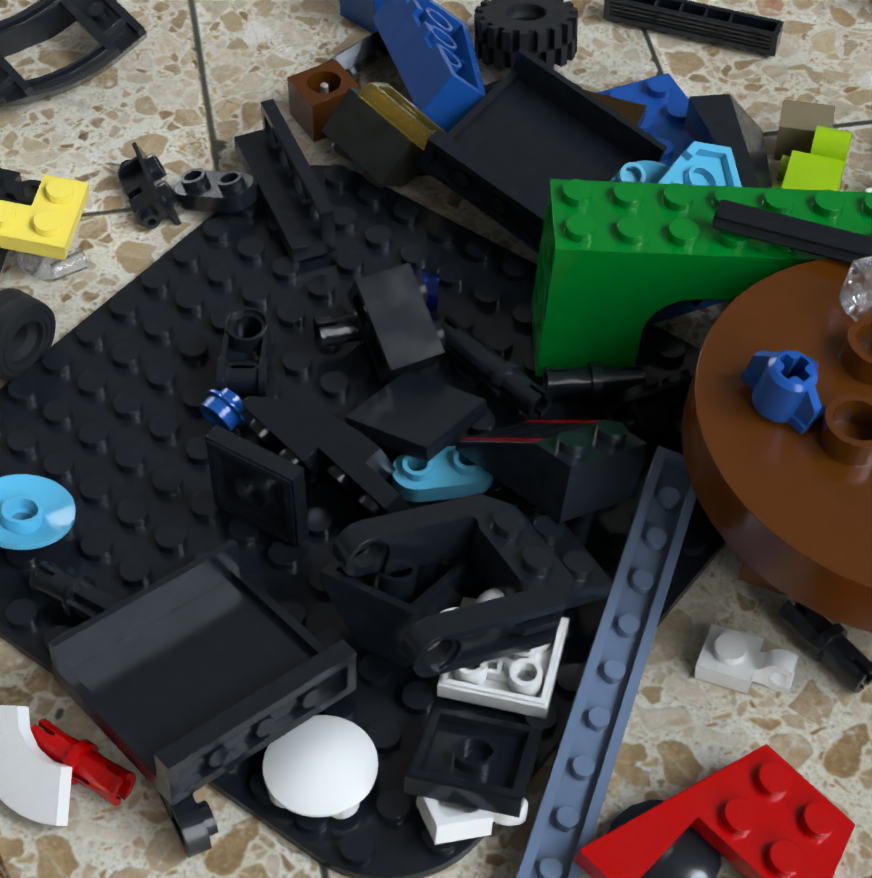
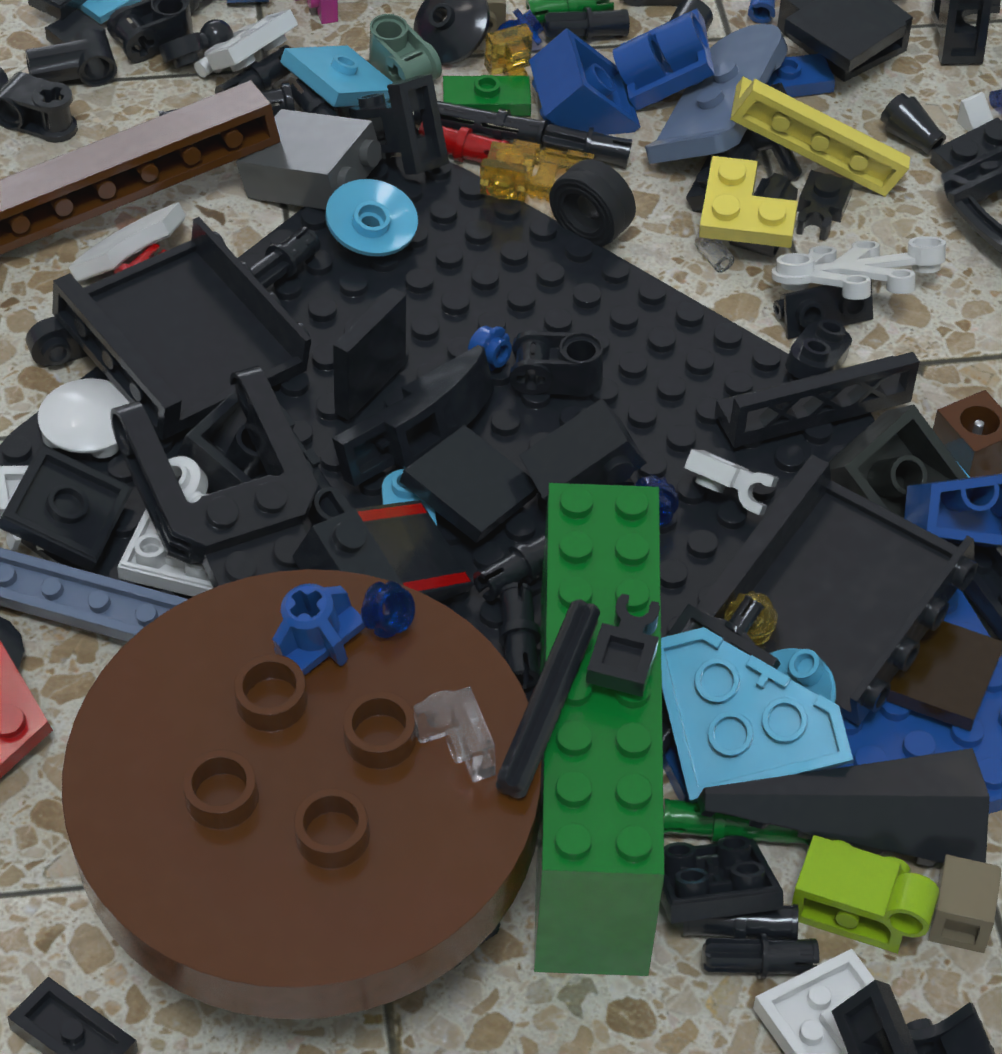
camera: 90 degrees right, 0 degrees up
(124, 187) = (860, 265): none -> white plant
(386, 245) = (718, 473): none -> white plate
(399, 112) = (931, 447): clear yellow tile -> none
(753, 335) = (398, 609): none -> clear blue plate
(760, 186) = (625, 651): none -> black plate

